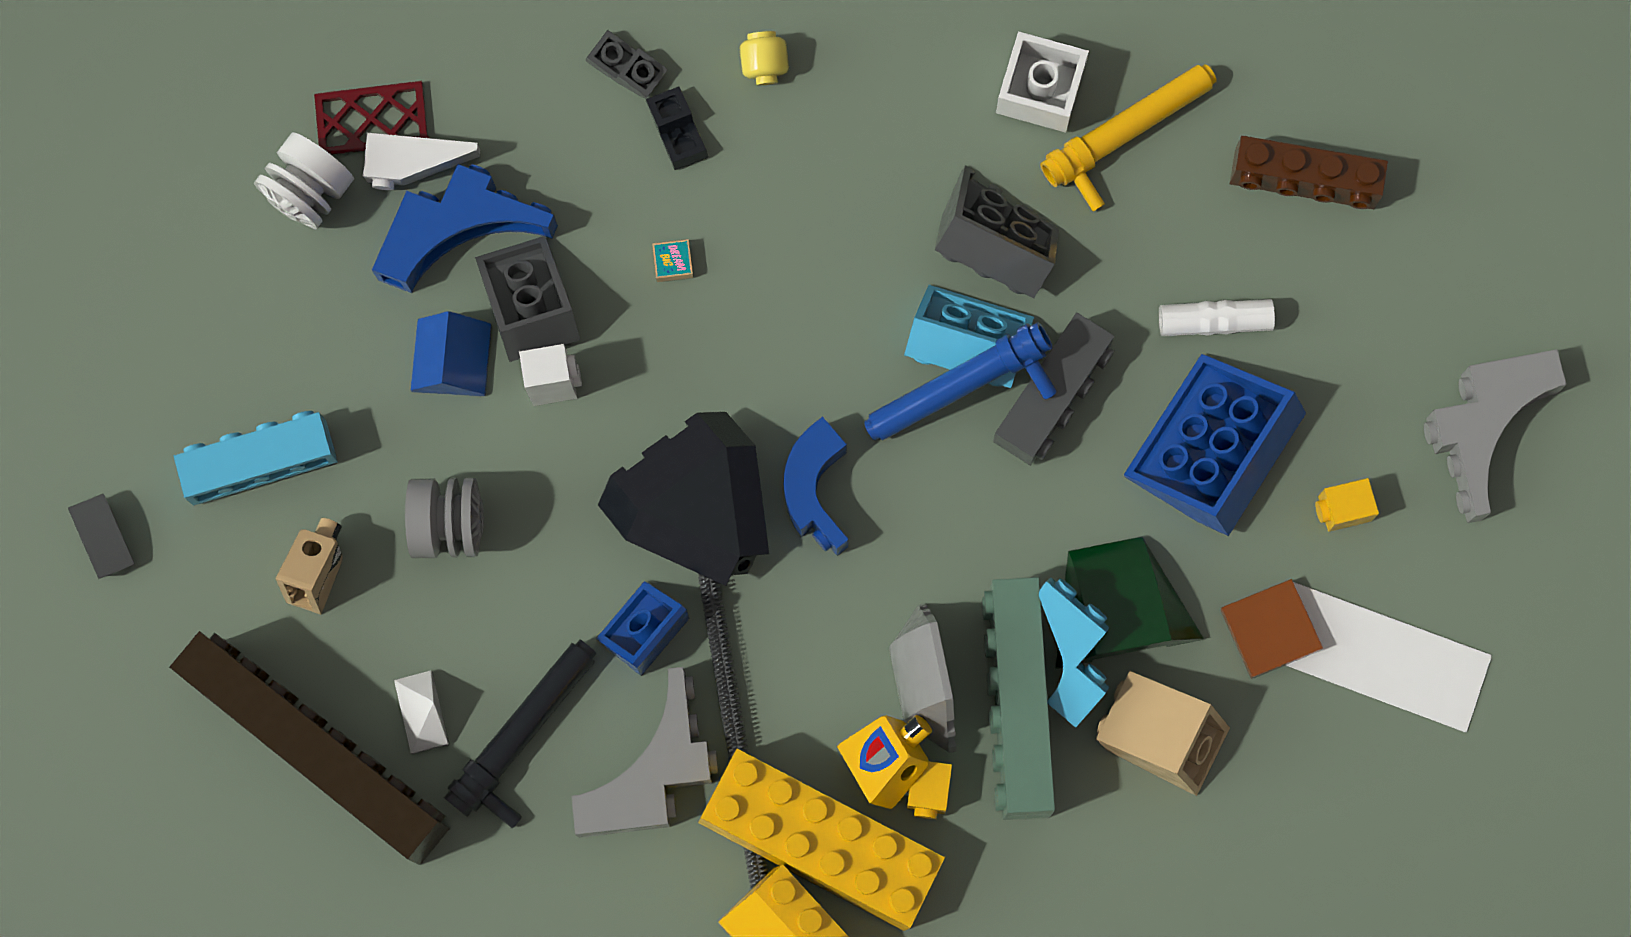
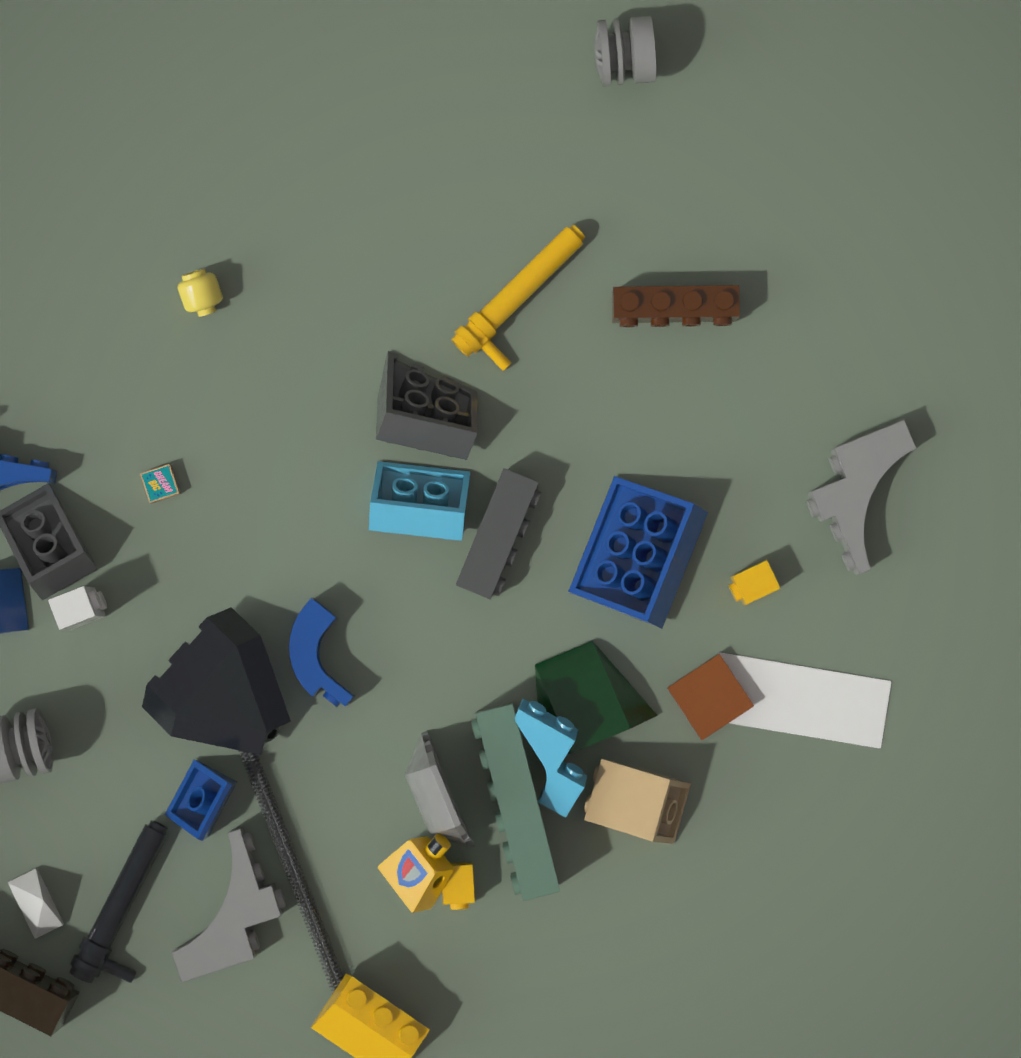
camera: 15 degrees left, 10 degrees up
(626, 65) = (84, 319): dark grey slope -> none
(677, 128) = (139, 367): black slope -> none
(821, 840) = (379, 946): yellow brick -> none
(1008, 355) = (453, 521): blue cylinder -> none
(1041, 81) = (438, 269): white brick -> none
(1216, 317) = (620, 444): white axle -> none

